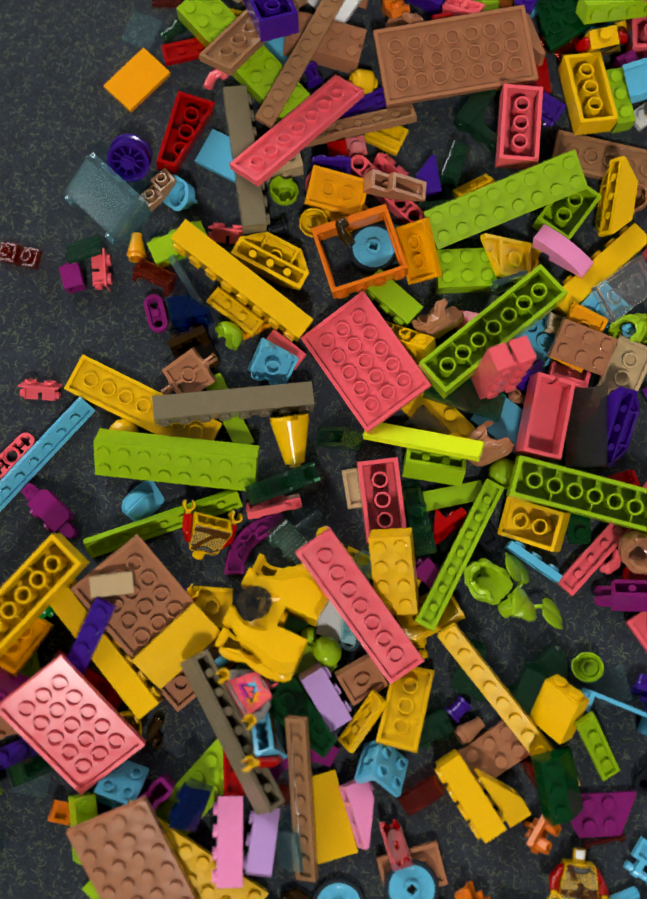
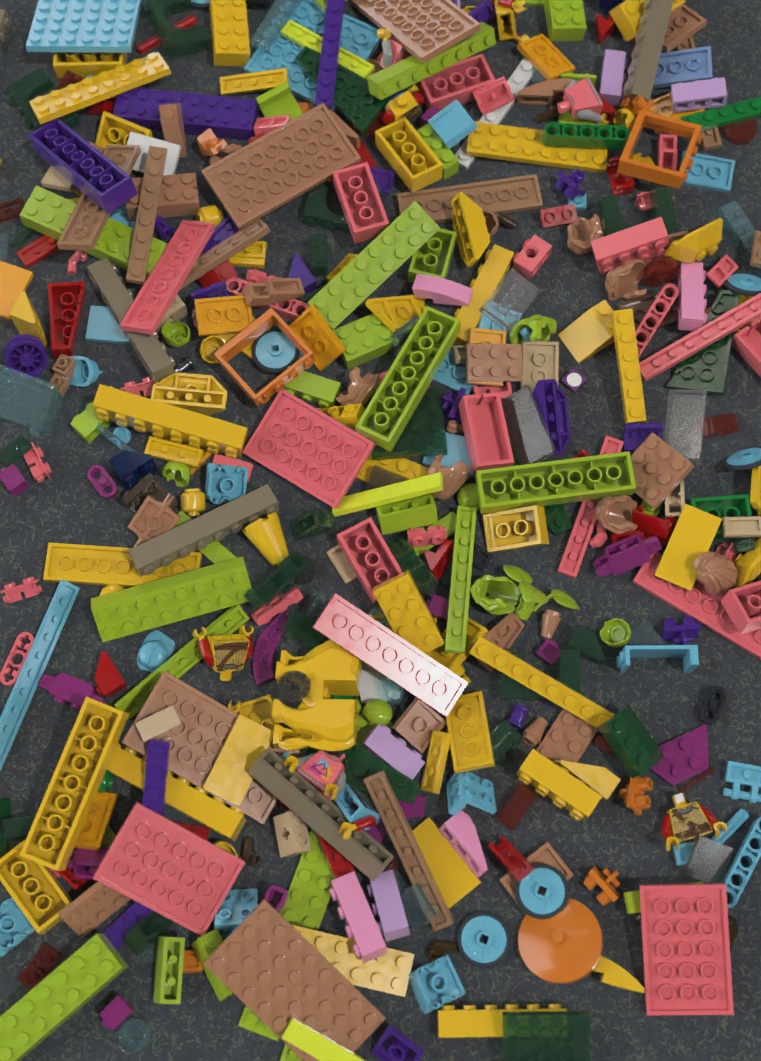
camera: 20 degrees left, 10 degrees down
(37, 814) = (169, 970): none -> lime brick
(88, 509) = (108, 677): none -> red slope
(136, 248) = (62, 434): light orange cone -> none
(145, 120) = (26, 318): none -> yellow slope
(155, 275) = (88, 449): clear red hinge -> none
(192, 804) = (309, 898): clear blue slope -> none
(193, 273) = (122, 433): none -> medium azure plate
(198, 735) = (291, 834): none -> tan brick
(234, 369) = (193, 502): none -> yellow head
(343, 234) = (243, 346): dark brown arm -> none
(453, 499) = (434, 536): none -> coral hinge
(478, 623) = (503, 634): none -> nougat wing
(501, 370) = (430, 404): coral piece -> none
(514, 658) = (548, 652): none -> magenta plate
(527, 631) = (550, 621): none -> nougat cone
(534, 561) = (529, 561): medium azure plate -> none
(558, 708) = (604, 675): yellow brick -> none
(597, 746) = (651, 694): lime tile -> none

